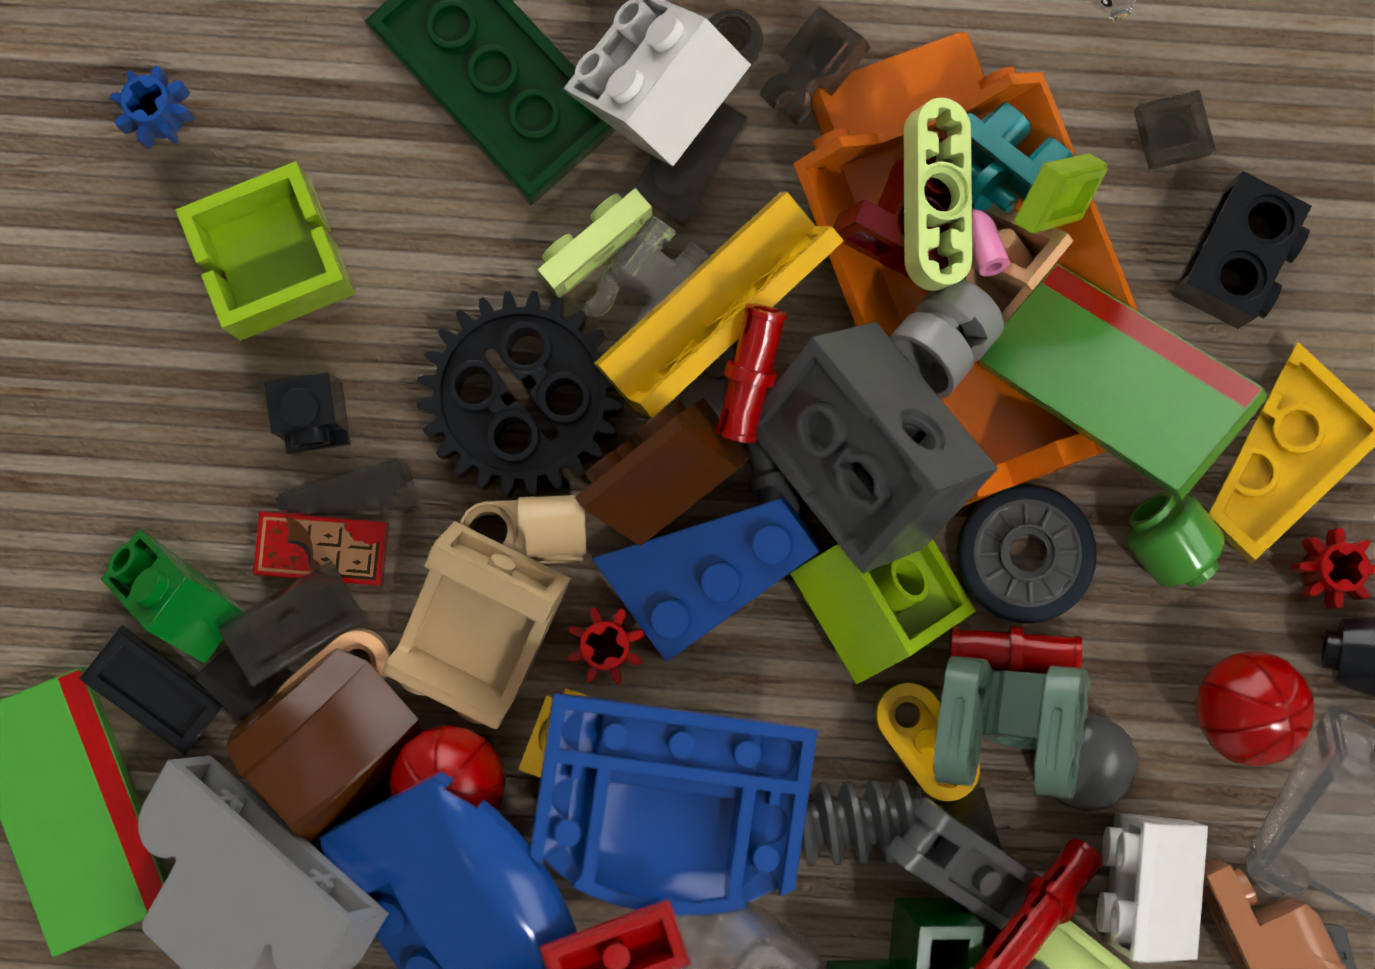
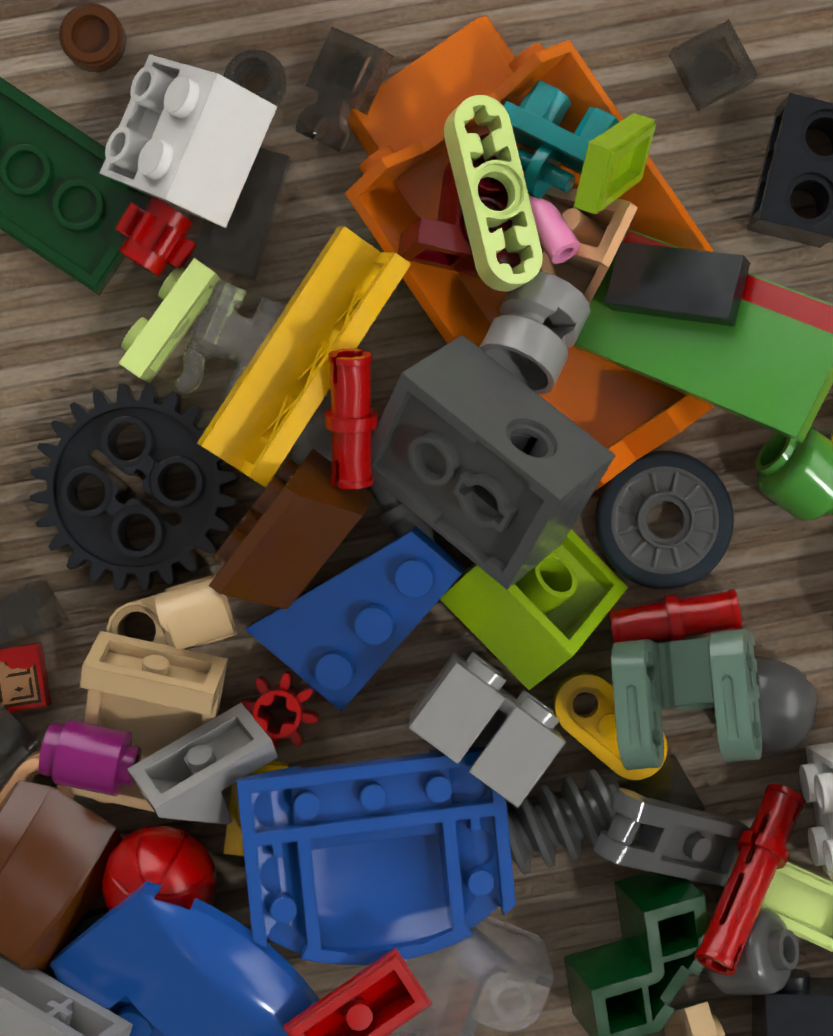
camera: 10 degrees left, 5 degrees up
(412, 641) = (88, 757): none -> magenta brick
(510, 677) = (191, 772): none -> light grey slope
(601, 160) = (155, 236): none -> red gear
(831, 730) = (473, 710): none -> light grey piece
(1094, 323) = (677, 283): none -> black tile

